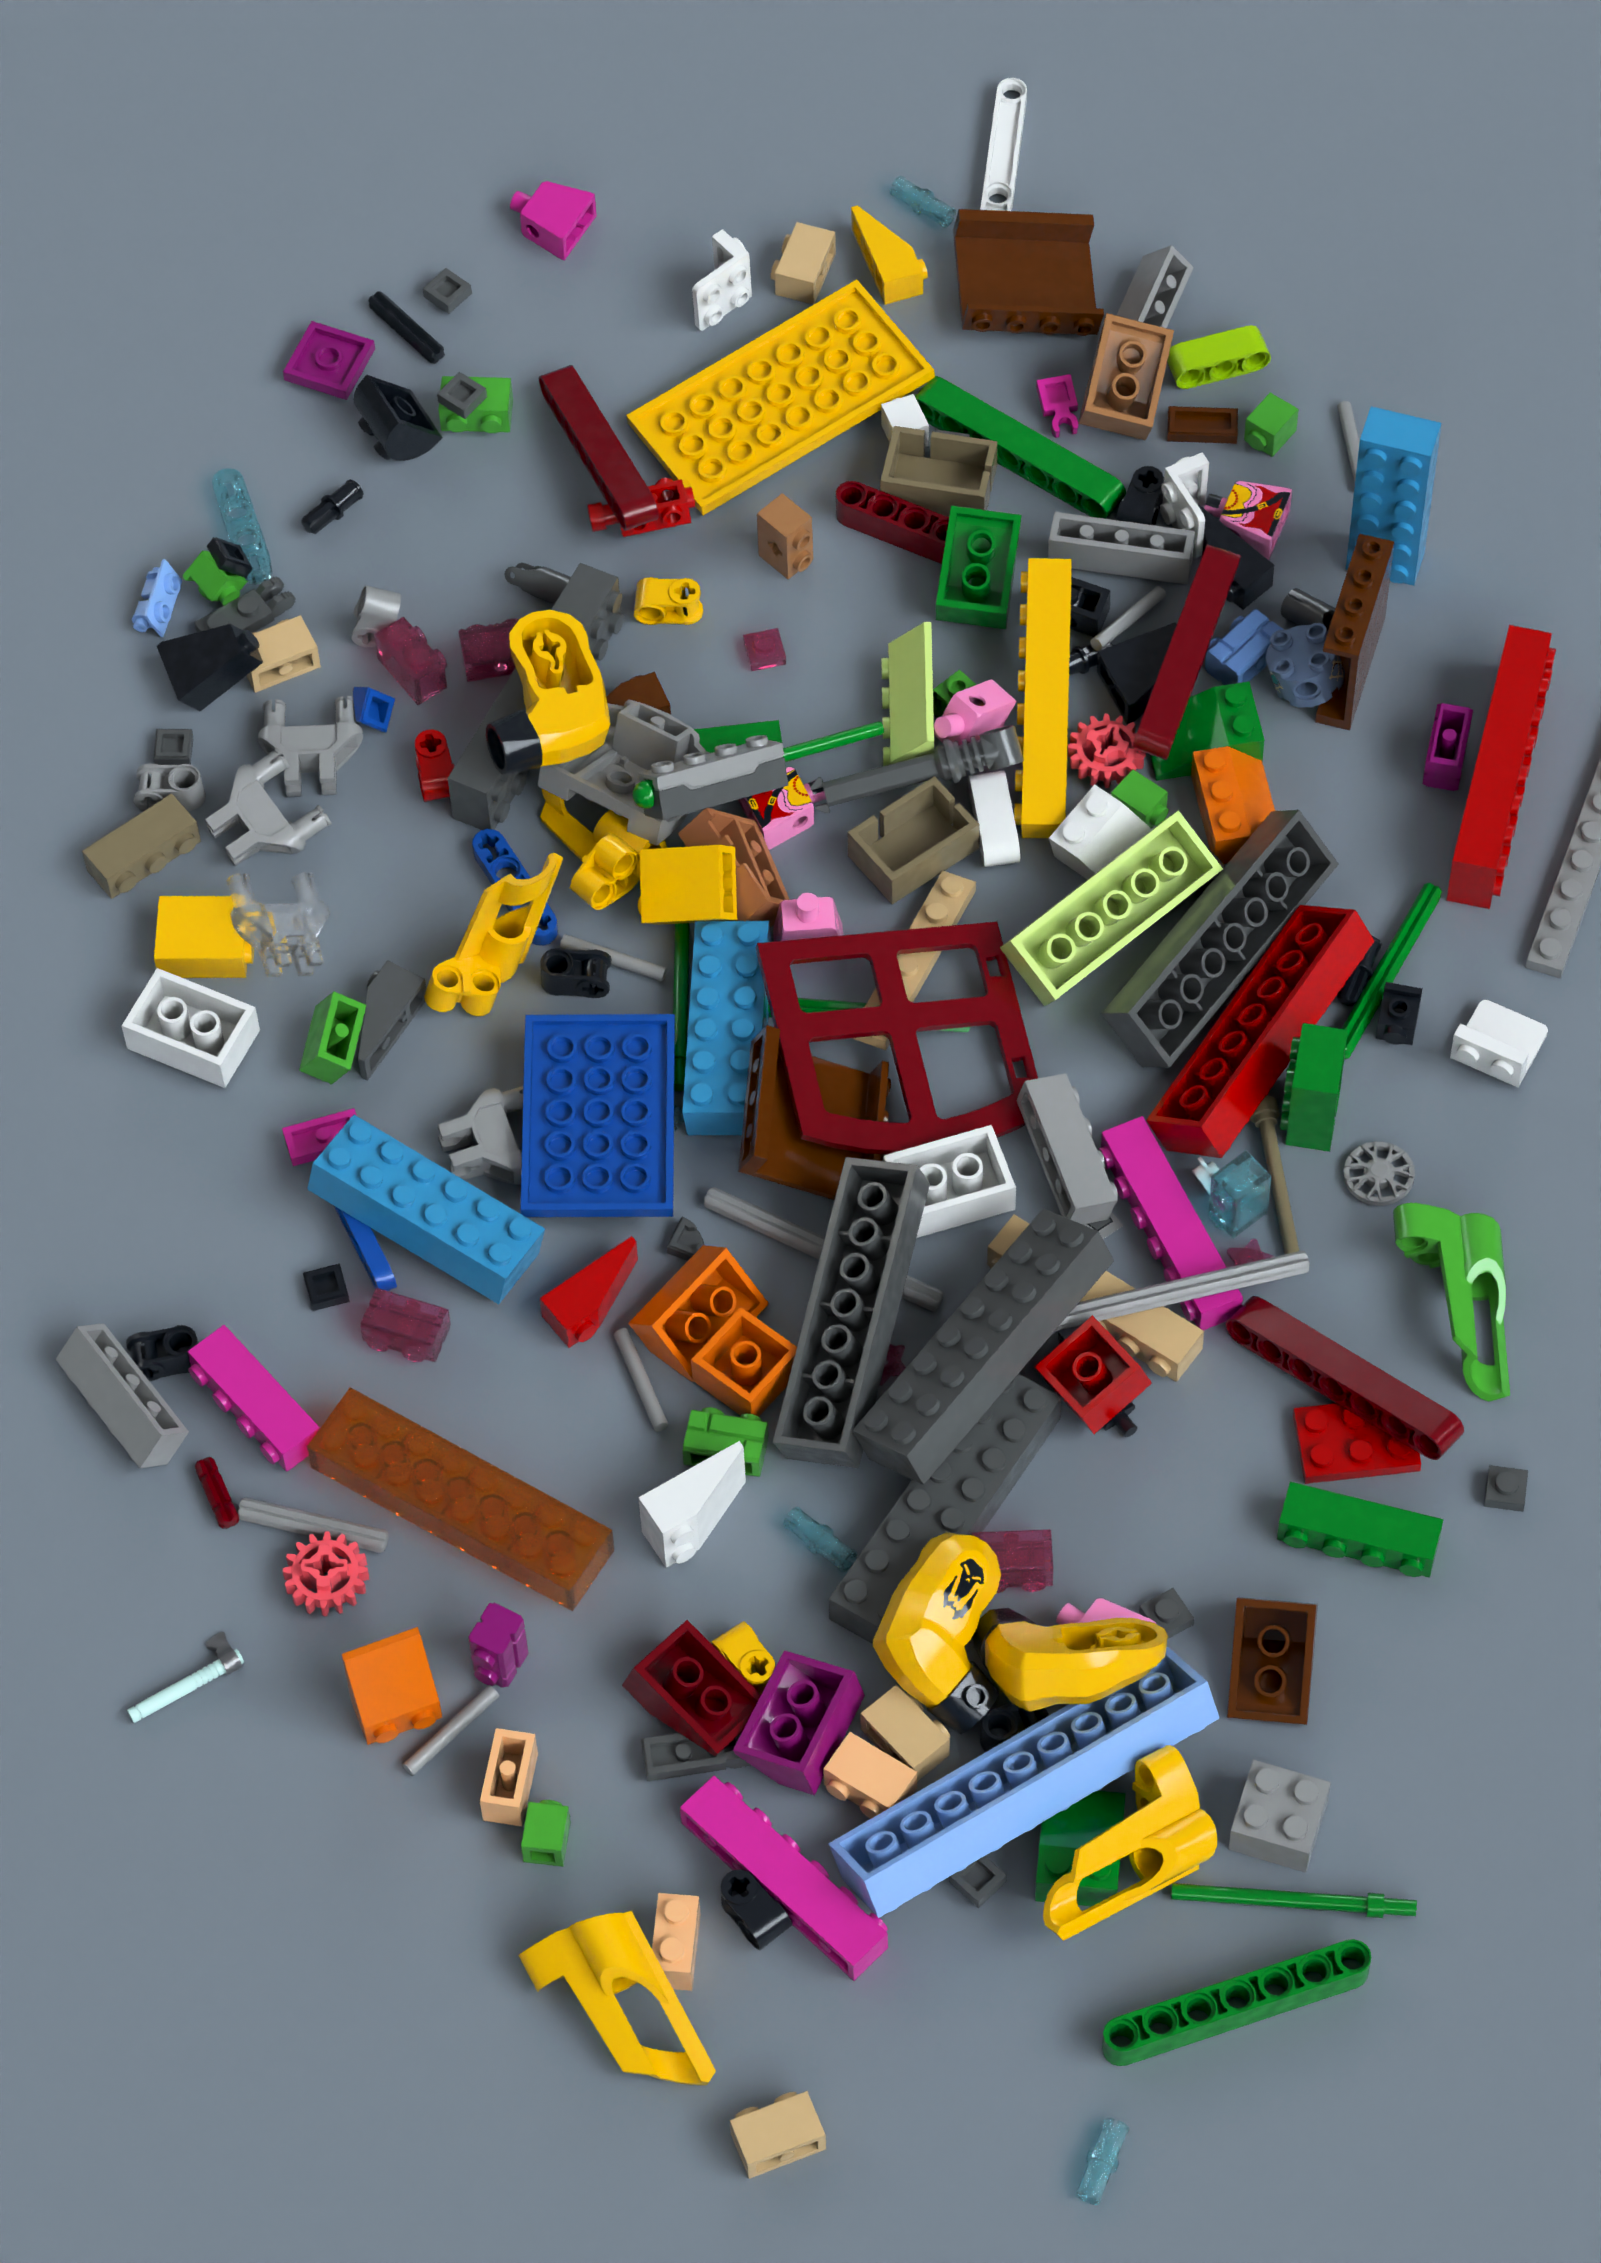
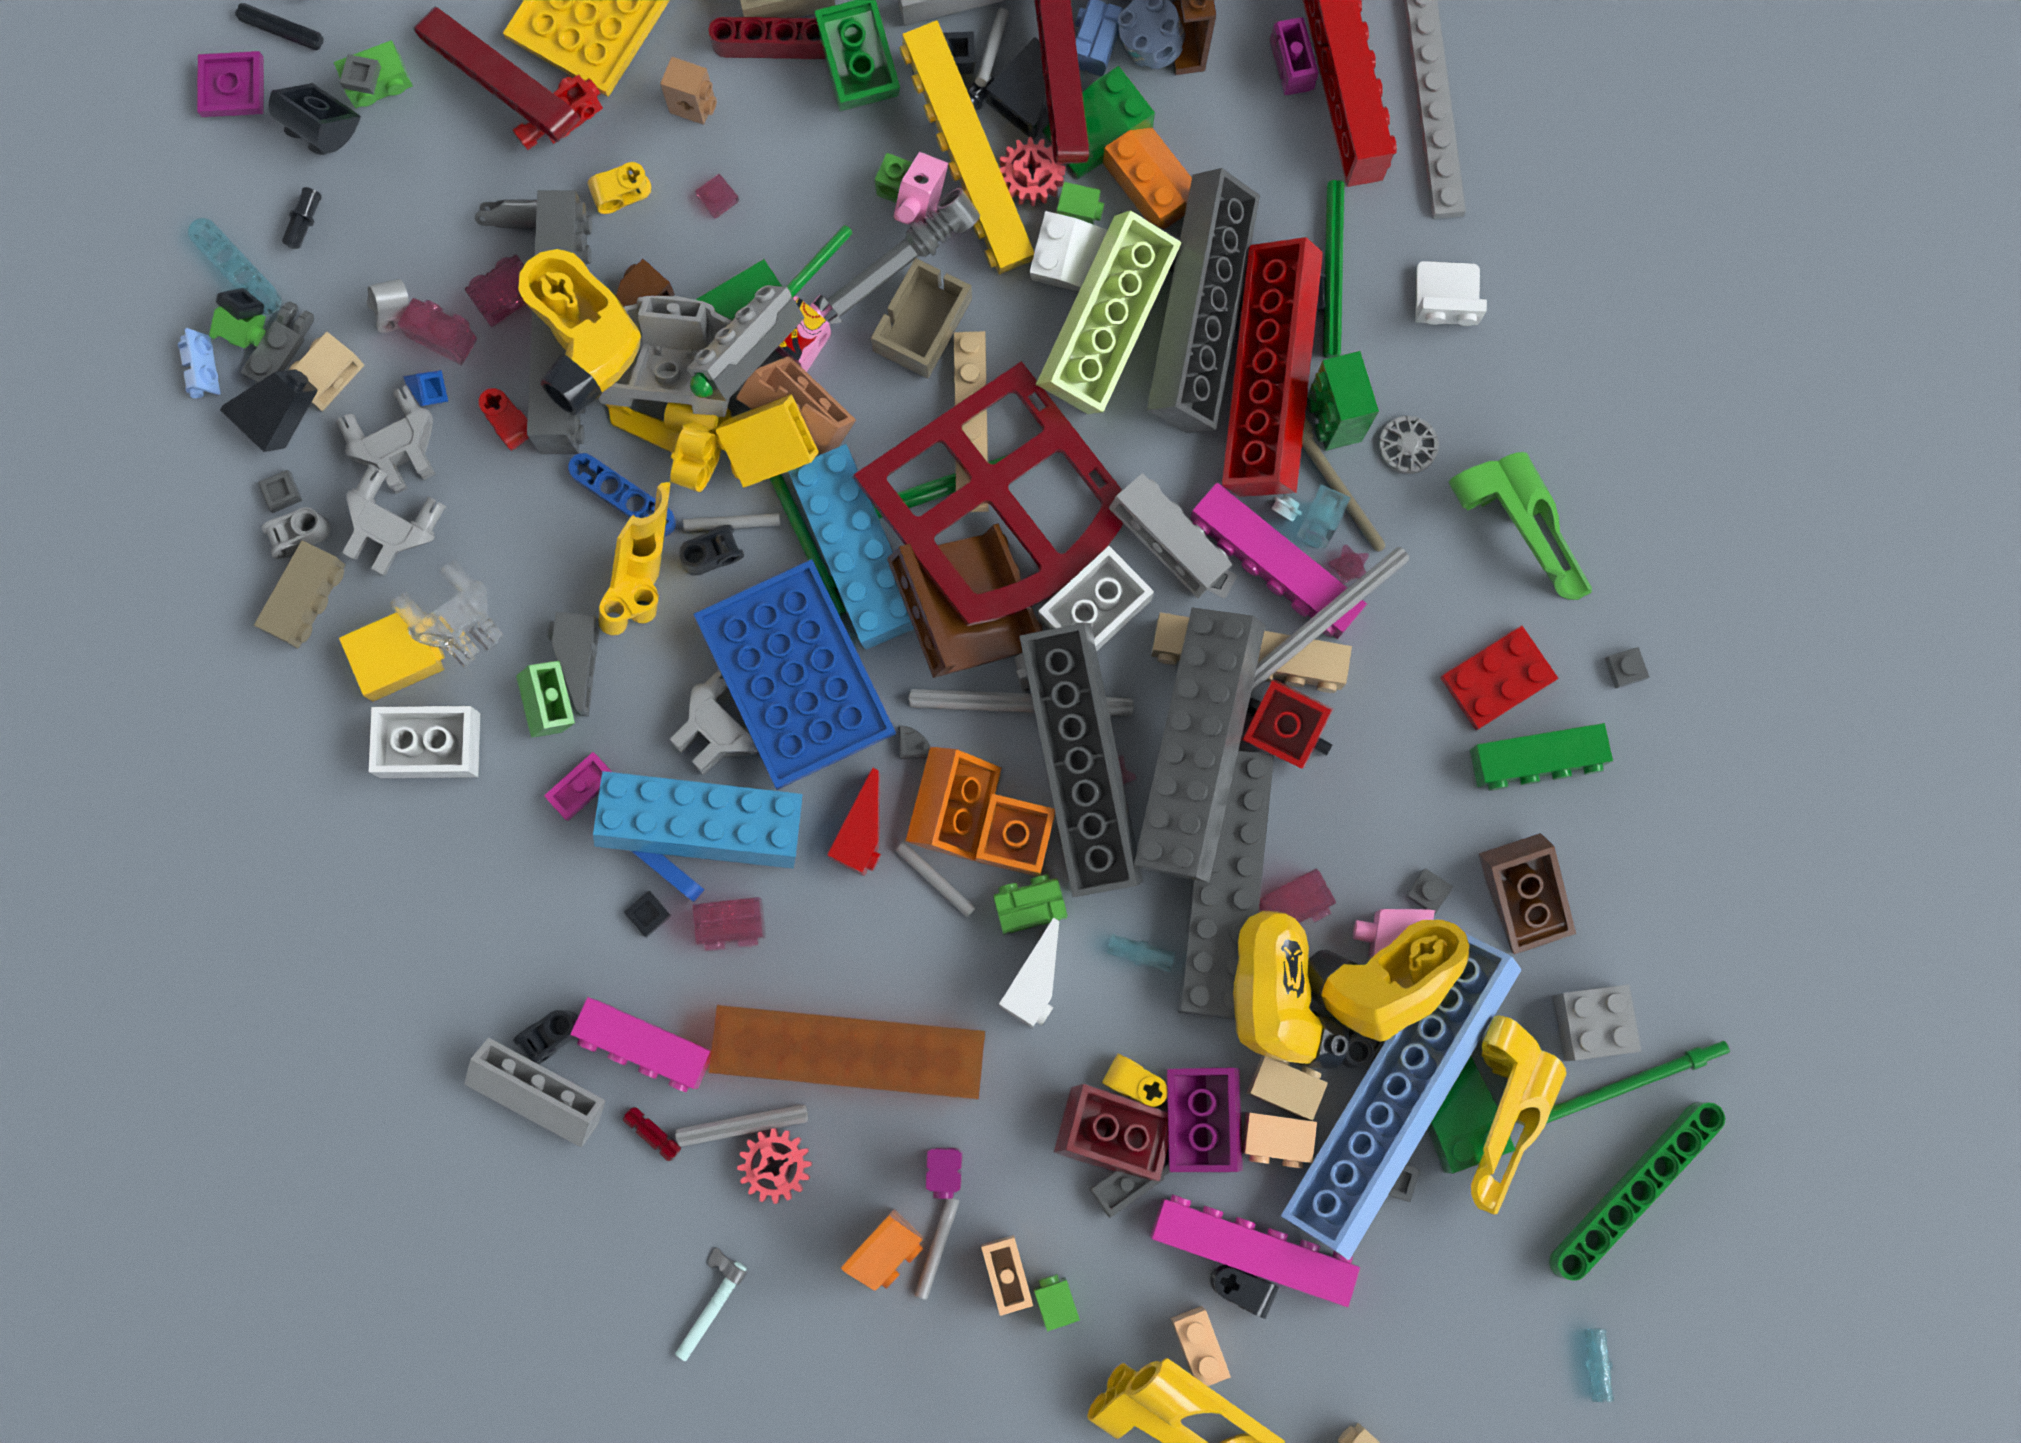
camera: 30 degrees left, 20 degrees up
(807, 918) = (875, 434): bright pink torso -> none
(909, 696) = (859, 195): yellowish green slope -> none
(994, 813) = (973, 267): white beam -> none
(1345, 1378) = (1475, 636): dark red beam -> none
(1398, 1014) = (1357, 314): black brick -> none

